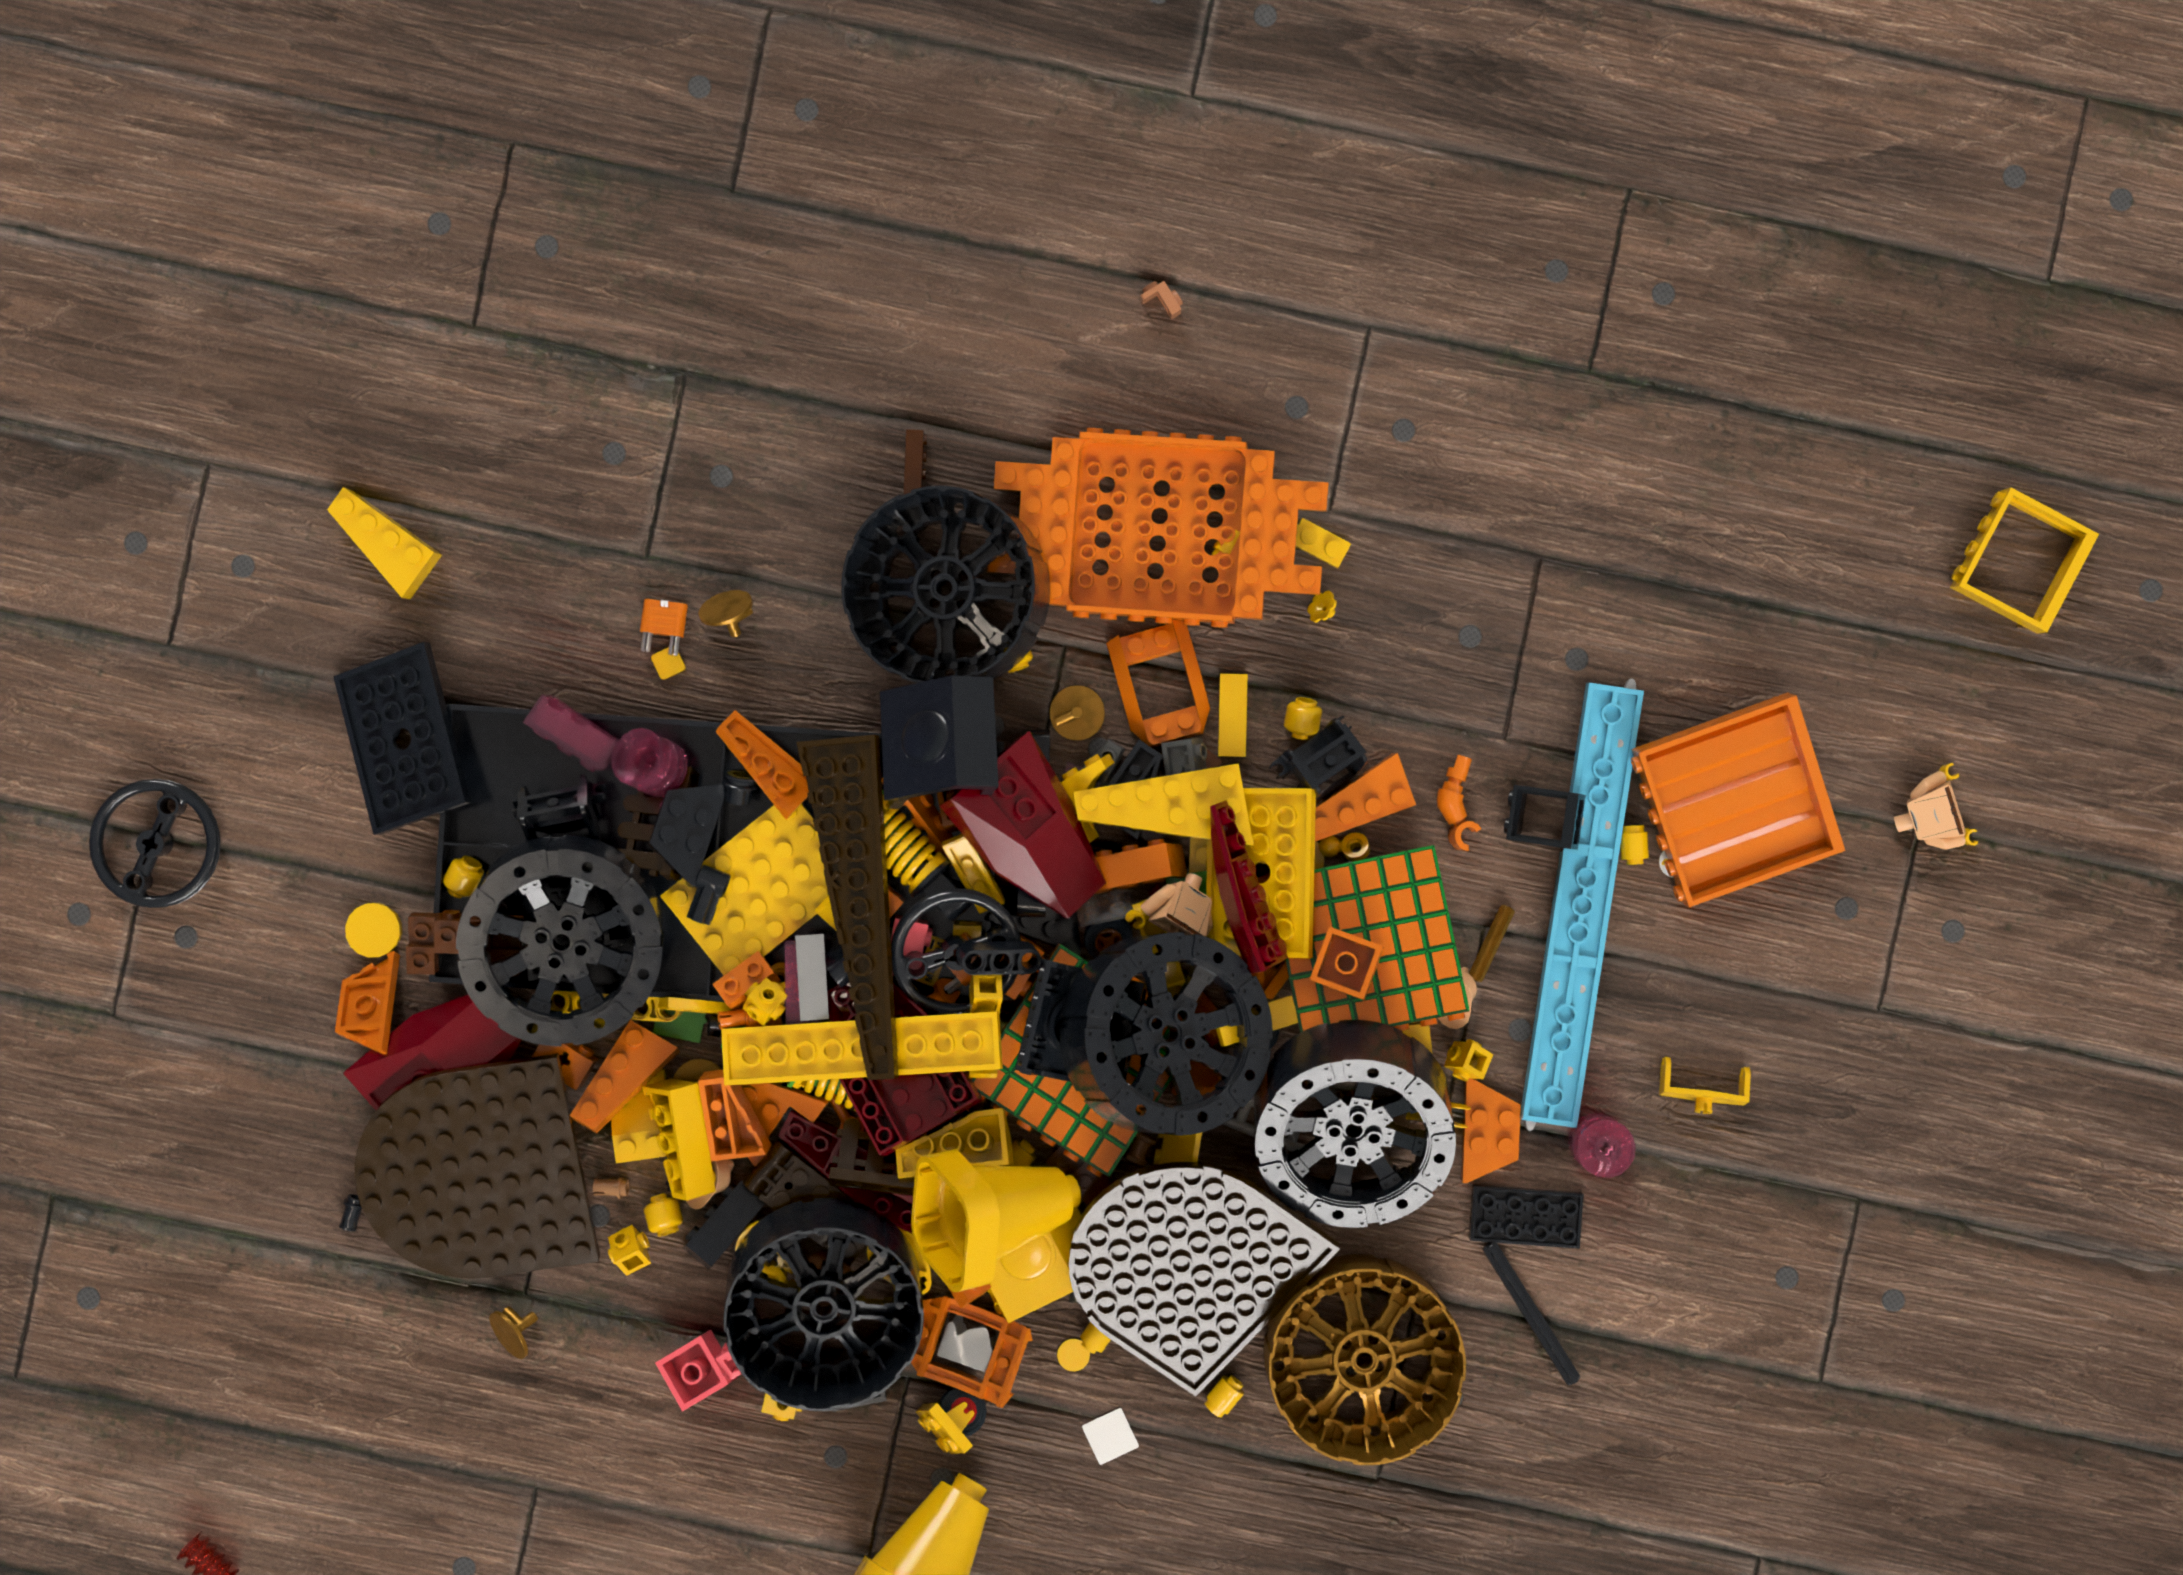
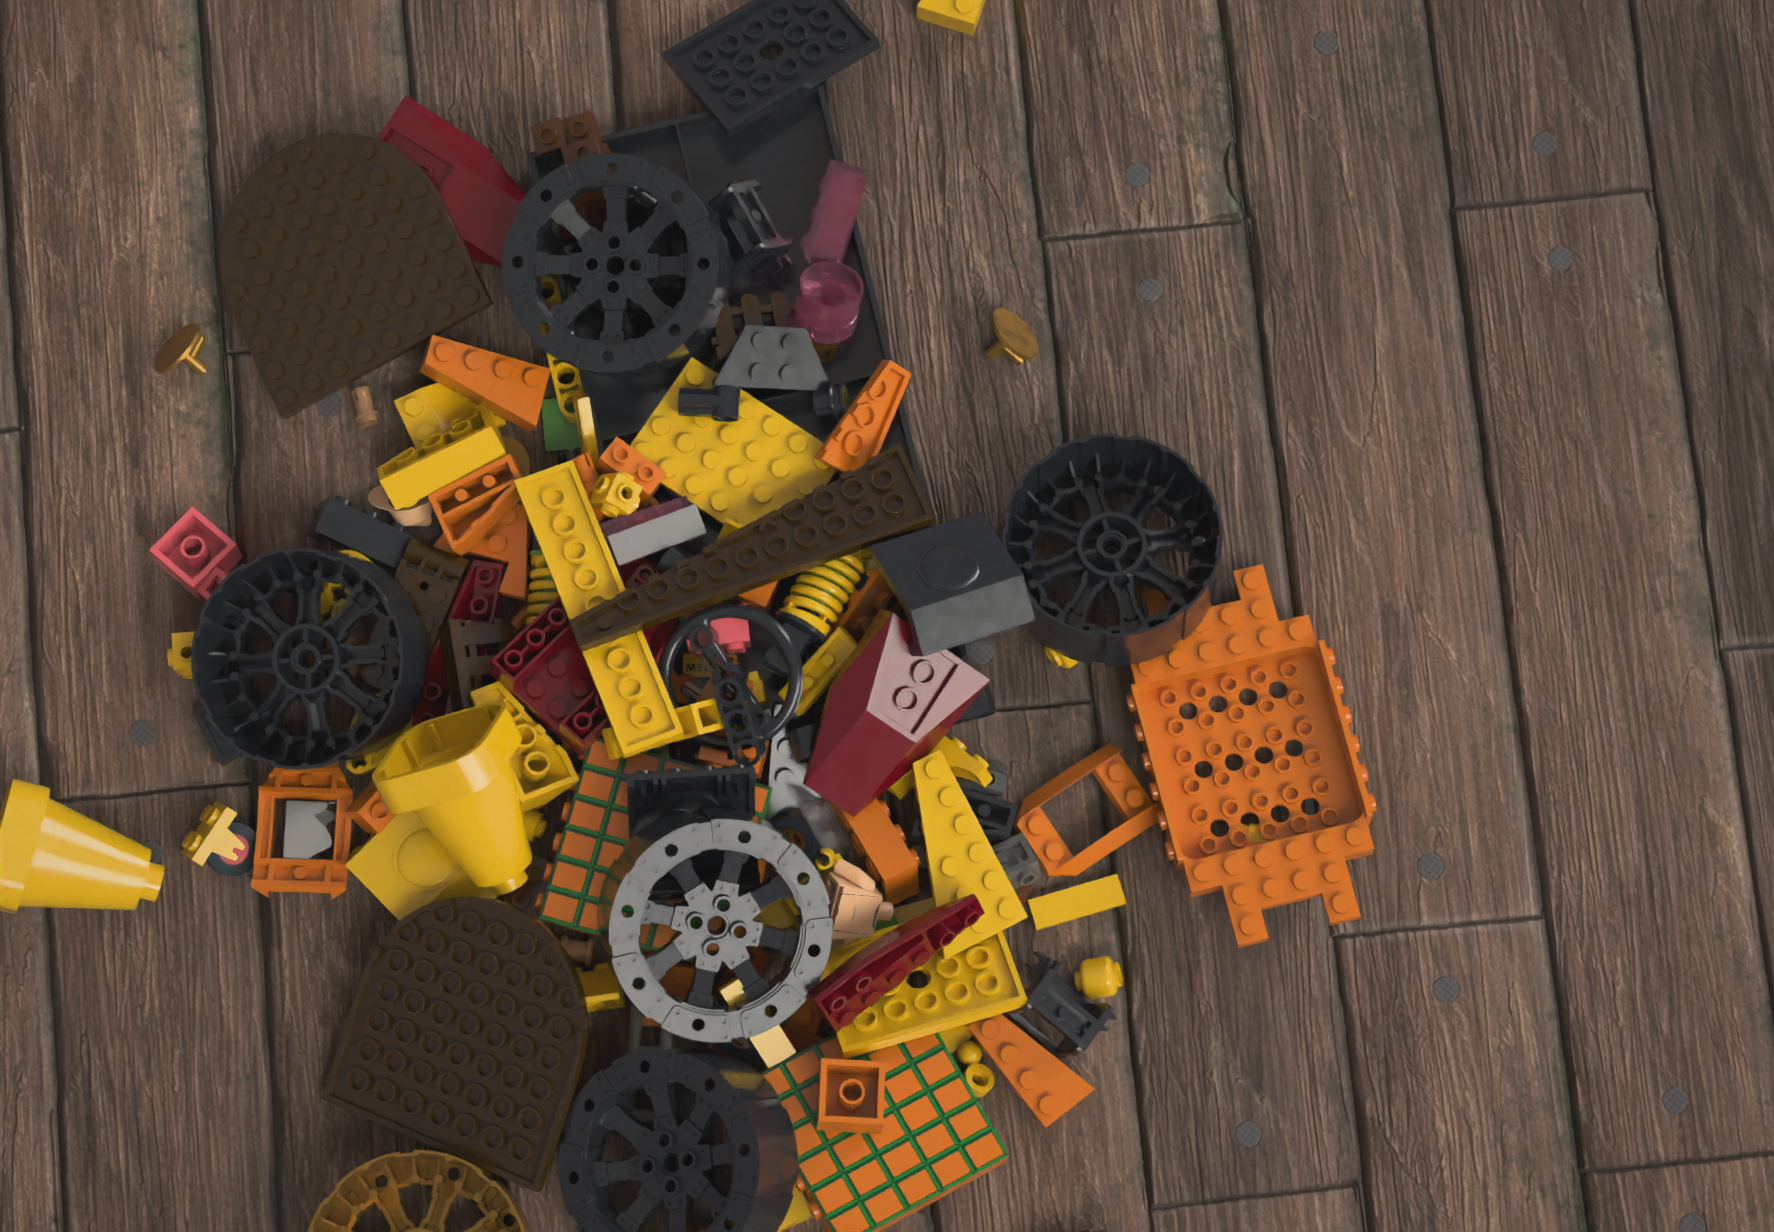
camera: 75 degrees right, 10 degrees down
(351, 1213) = (256, 151): black pin -> none
(368, 1004) = (483, 101): orange wing -> none
(373, 930) = (561, 84): yellow tile -> none
(462, 876) = (649, 148): yellow head -> none
(579, 1065) = (493, 333): orange brick -> none
(629, 1249) = (304, 444): yellow brick -> none
(663, 619) = (980, 275): orange piece -> none
(663, 1215) = (351, 468): yellow head -> none
(667, 665) = (937, 295): yellow piece -> none
(914, 459) = (1238, 480): reddish brown piece -> none
(1073, 1355) = (327, 952): yellow sticker -> none
(1077, 712) = (1024, 736): pearl gold shield -> none
(1093, 1339) = (352, 967): yellow brick -> none
(1110, 1436) = (249, 1021): white sticker -> none
(1169, 299) = (1496, 692): nougat bracket -> none
(1224, 1395) = (331, 1130): yellow brick -> none
(1321, 543) = (1293, 936): yellow plate -> none
(1322, 607) = (1225, 960): yellow plant -> none
(1451, 803) = (1060, 1169): orange piece -> none

